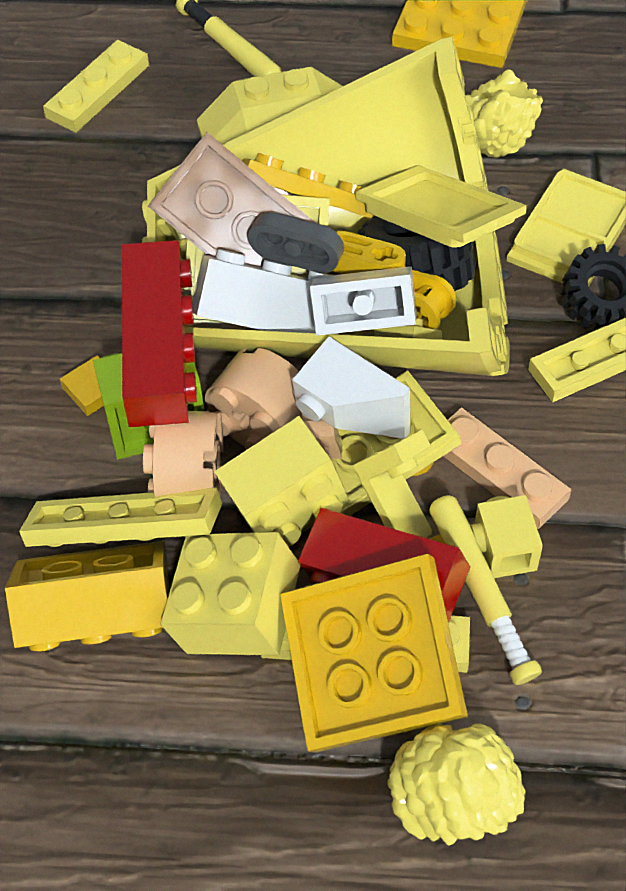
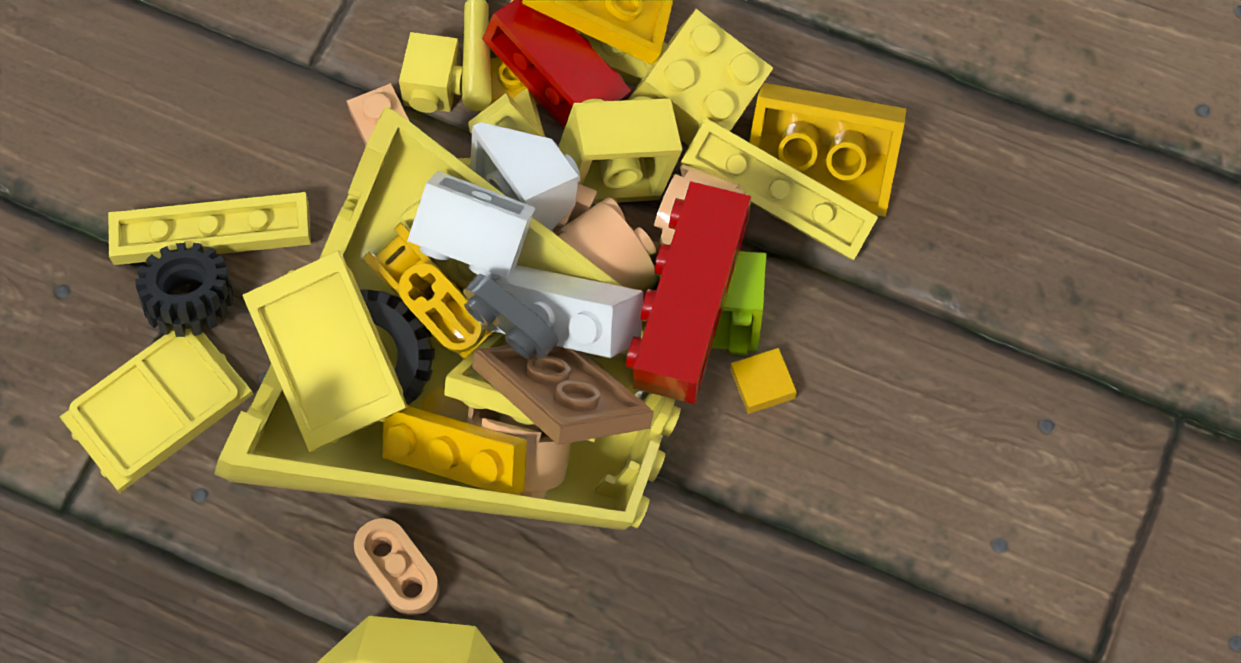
camera: 160 degrees left, 10 degrees up
(504, 114) = (154, 563): light yellow hair -> none

